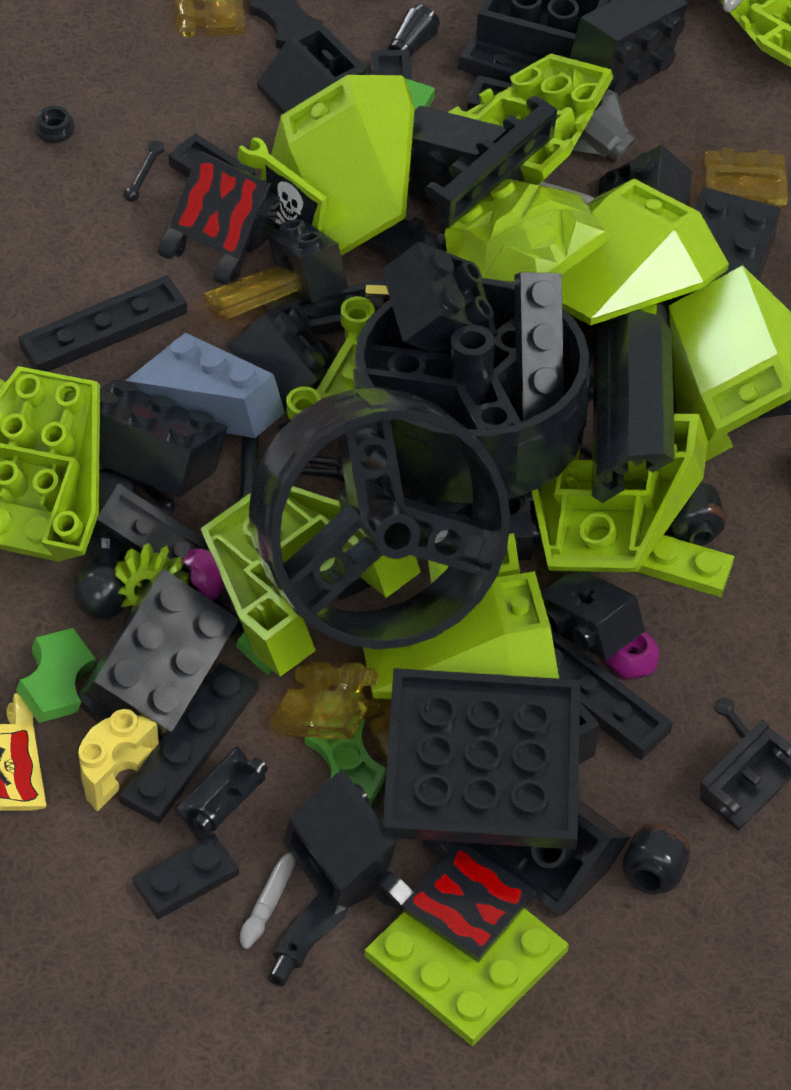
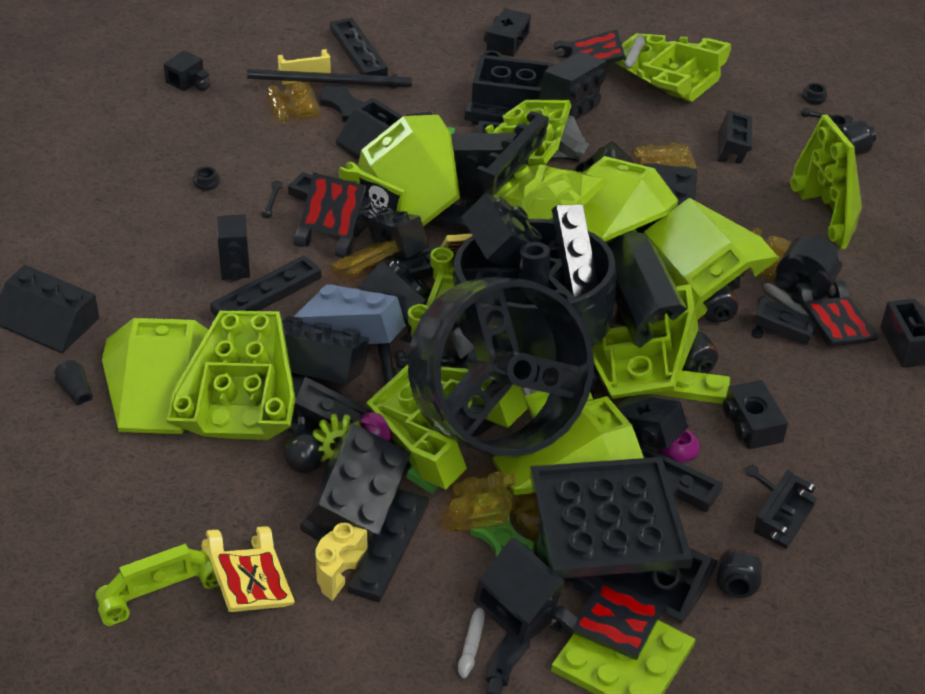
camera: 10 degrees left, 10 degrees down
(60, 662) = (283, 518): bright green tile -> none
(66, 253) = (233, 247): none -> black brick
(185, 876) = (408, 634): black plate -> none
(221, 792) = (421, 573): black hinge -> none
(415, 29) = (432, 99): black cone -> none
(755, 437) = (722, 305): none -> black head
(756, 602) = (755, 414): none -> black brick

